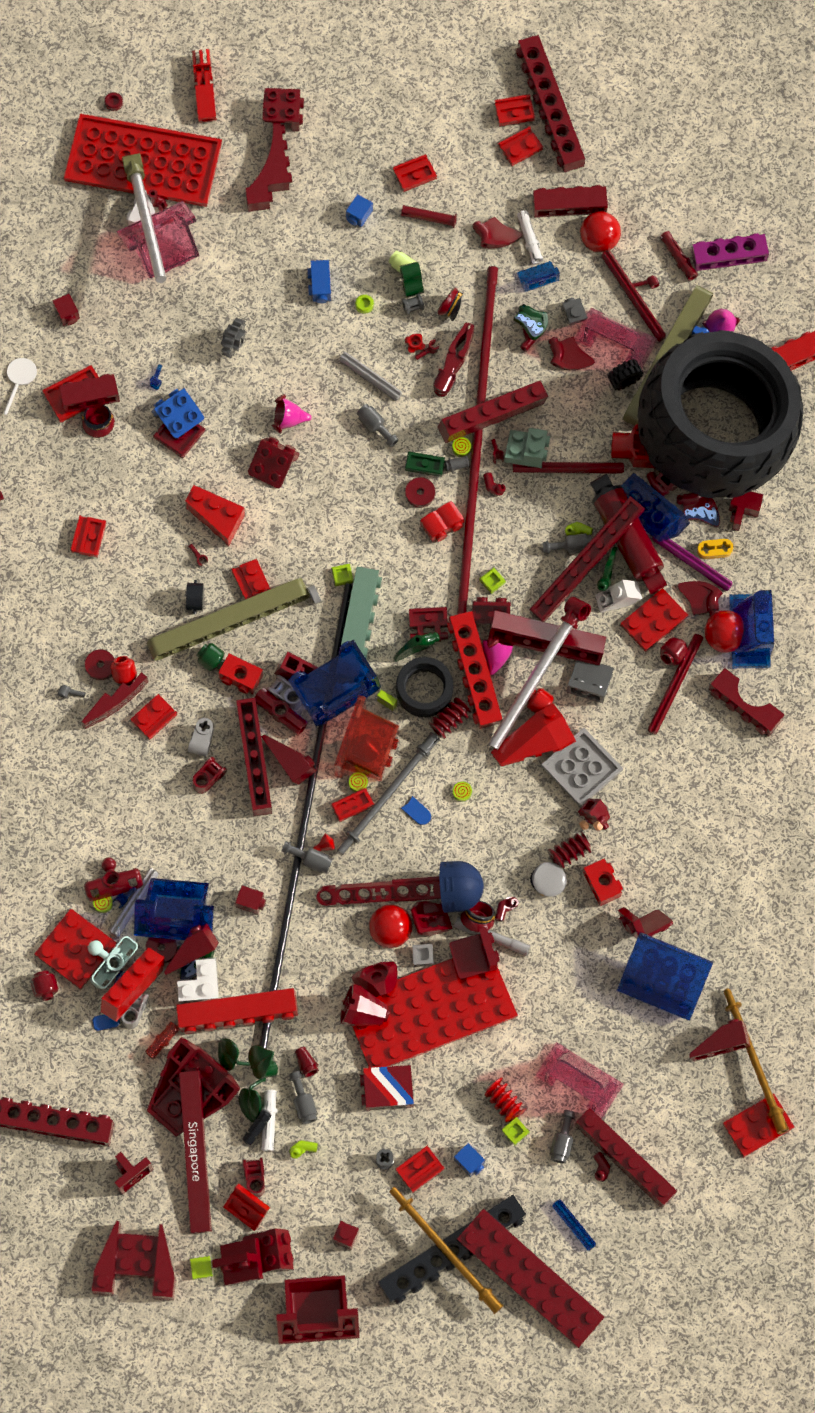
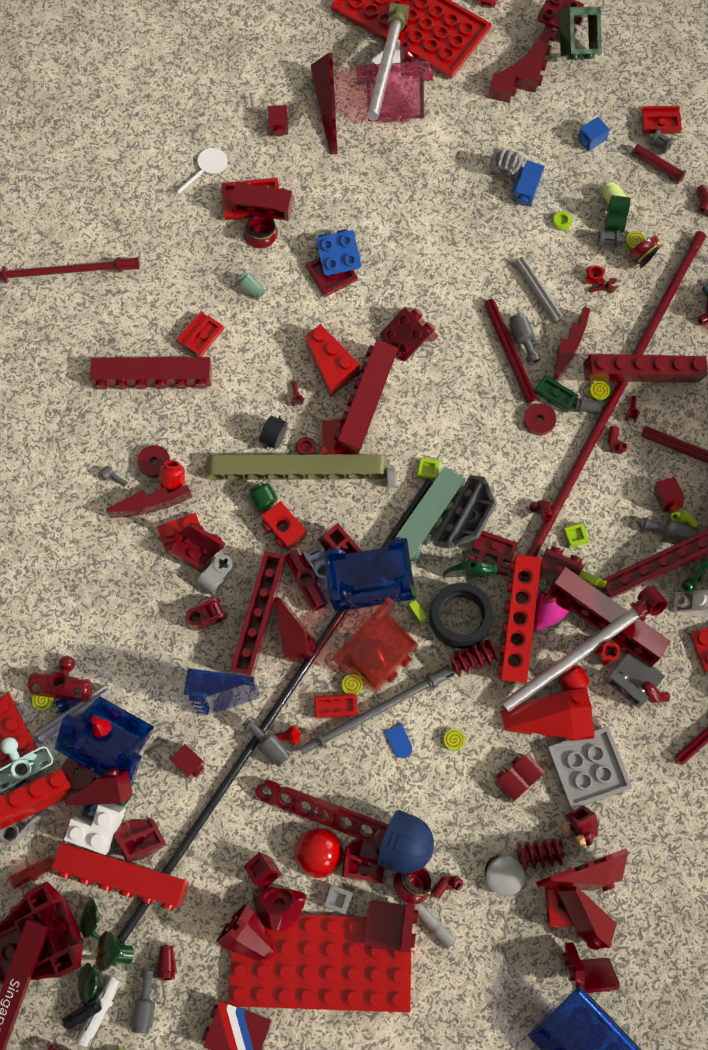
camera: 25 degrees right, 0 degrees up
(61, 587) = (151, 372): none -> dark red brick
(93, 259) = (323, 82): none -> dark red wedge
(112, 474) = (250, 285): none -> sand green cone
(155, 383) = (331, 215): clear blue hand -> none
(163, 902) = (100, 727): none -> red rock
(175, 721) = (196, 546): none -> dark red bracket
(227, 598) = (306, 446): none -> dark red tile
(233, 337) = (421, 202): dark grey gear -> none
(239, 976) = (139, 839): none -> dark red slope
(253, 828) = (218, 691): none -> clear blue slope
(262, 533) = (366, 398): none -> dark red brick
(288, 414) = (443, 294): dark pink hat -> none
(292, 270) = (505, 162): none -> light grey gear
(296, 123) = (567, 38): none -> dark green window
(351, 956) = (262, 870): none -> dark red brick
(369, 441) = (510, 351): none -> dark red axle
(394, 599) = (468, 514): none -> dark grey wedge
(419, 419) = (569, 347): none -> dark red slope
(423, 194) = (661, 141): none -> dark grey bush
(436, 297) = (633, 239): none -> lime tile
(442, 521) = (549, 456): red brick -> none
(447, 376) = (625, 307): dark red arm -> none
(454, 568) = (542, 507): none -> dark red arm
(522, 612) = (592, 579): none -> lime tile
(527, 447) = (665, 417): sand green plate -> none
(528, 798) = (519, 777): none -> dark red brick
(557, 514) = (669, 495): none -> dark red brick
(558, 667) = (607, 652): none -> red piece
(611, 686) = (653, 693): none -> dark red arm
(615, 848) = (591, 875): none -> dark red wedge
(628, 882) = (588, 918): none -> dark red slope

